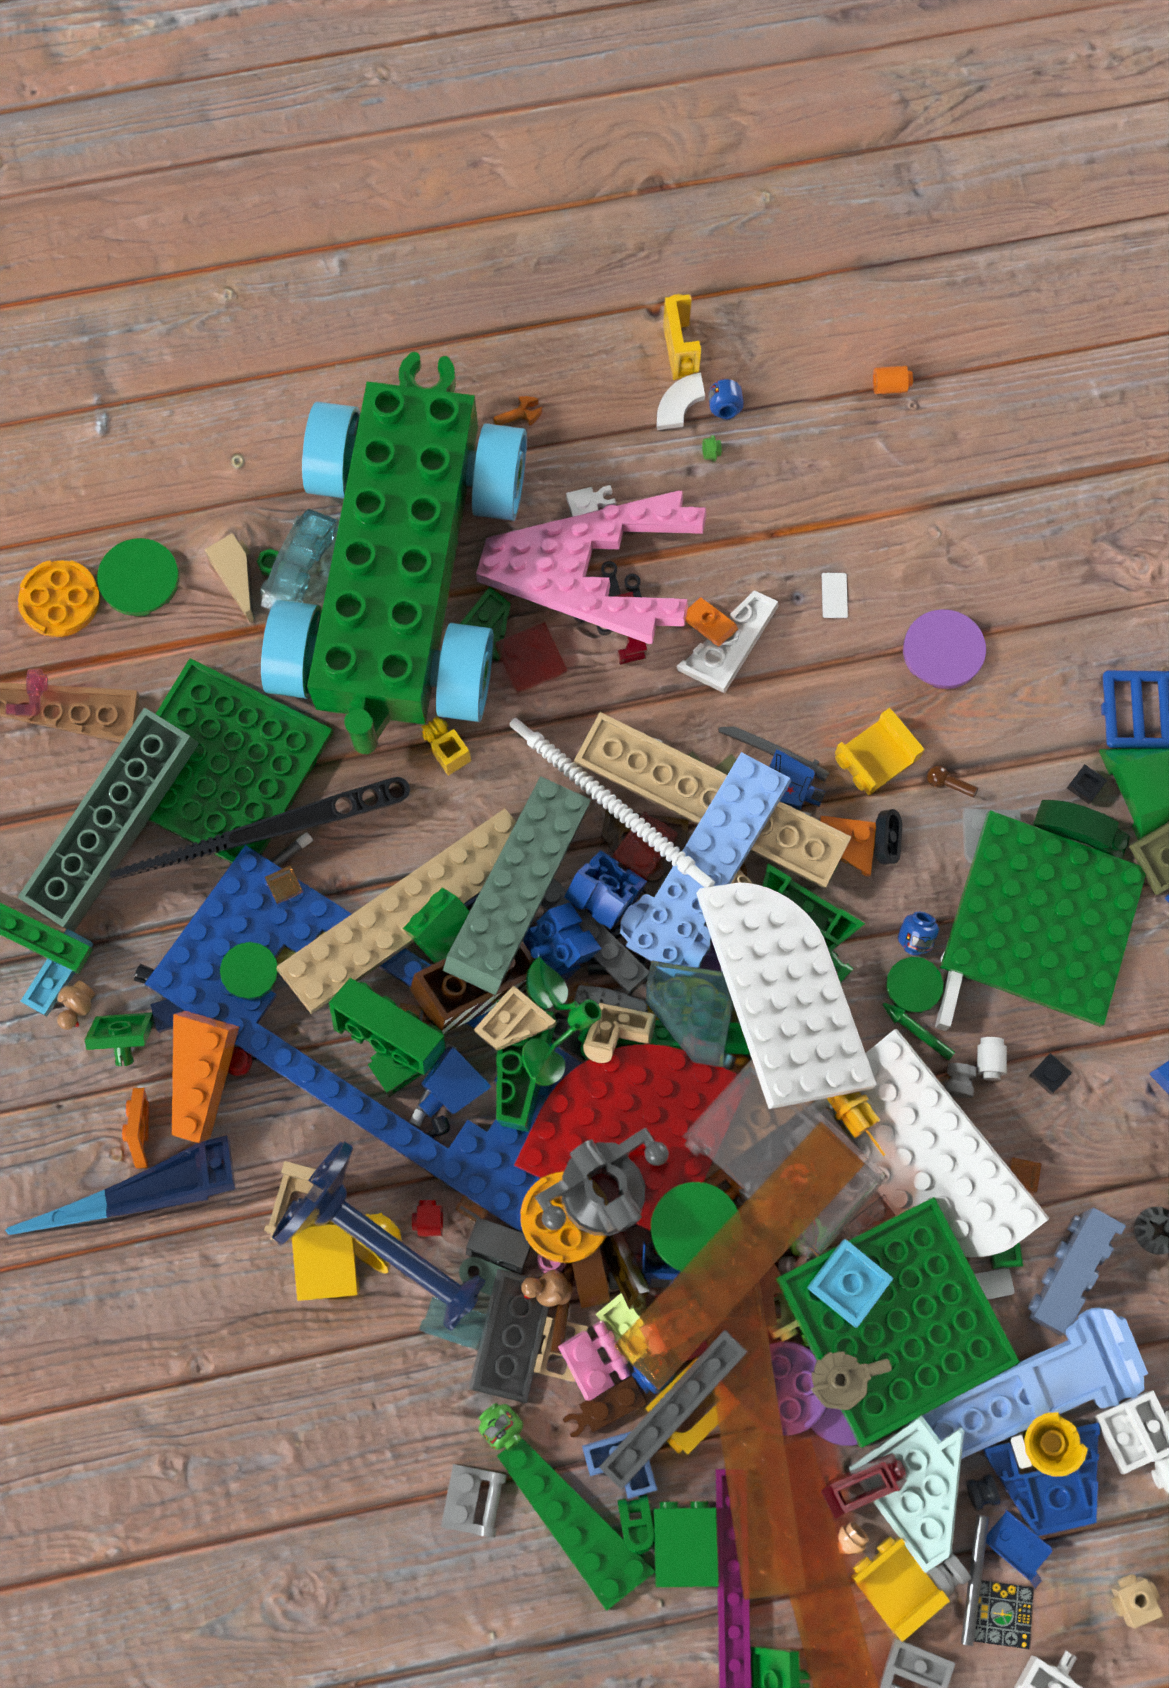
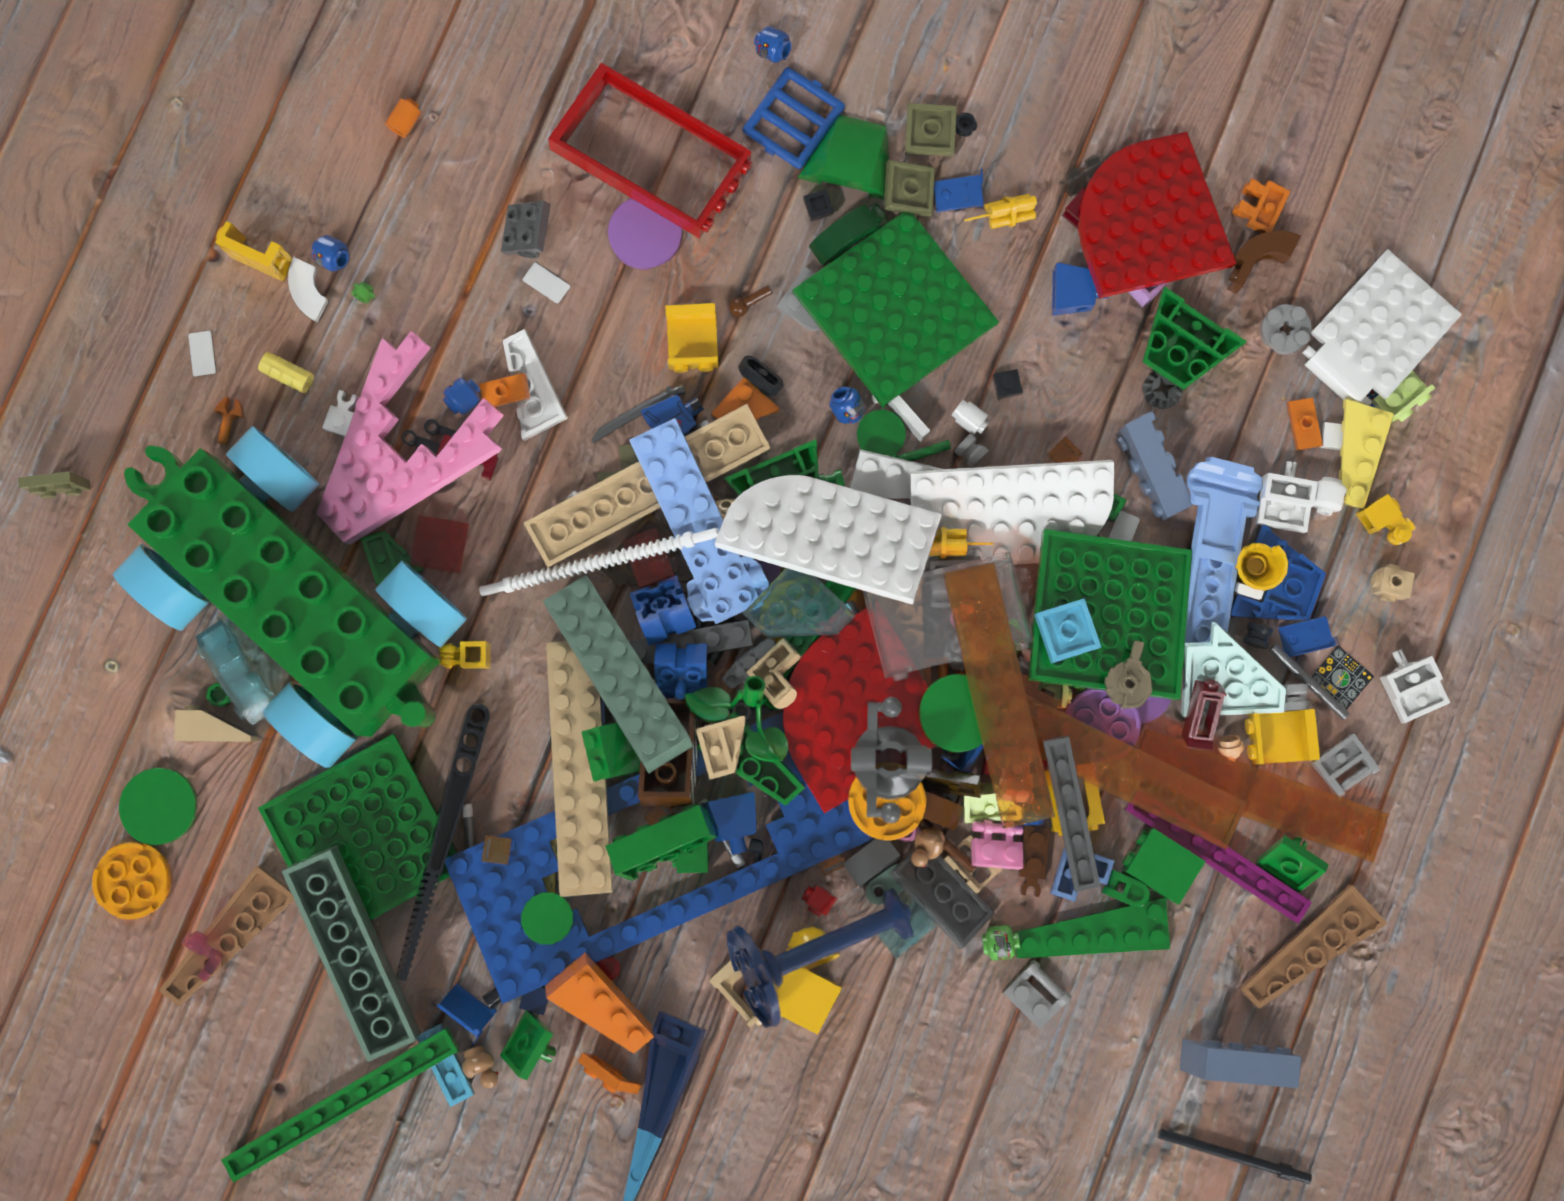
camera: 60 degrees left, 10 degrees up
(118, 959) = (466, 1010): none -> blue piece
(365, 312) = (56, 483): none -> olive plate
(562, 356) = (202, 353): none -> white sticker
(594, 432) = (285, 372): none -> light yellow axle
(679, 586) = (461, 396): none -> blue head
(869, 544) = (525, 229): none -> dark grey plate
(876, 1010) = (884, 475): none -> white wing
(1023, 519) = (605, 75): none -> red door

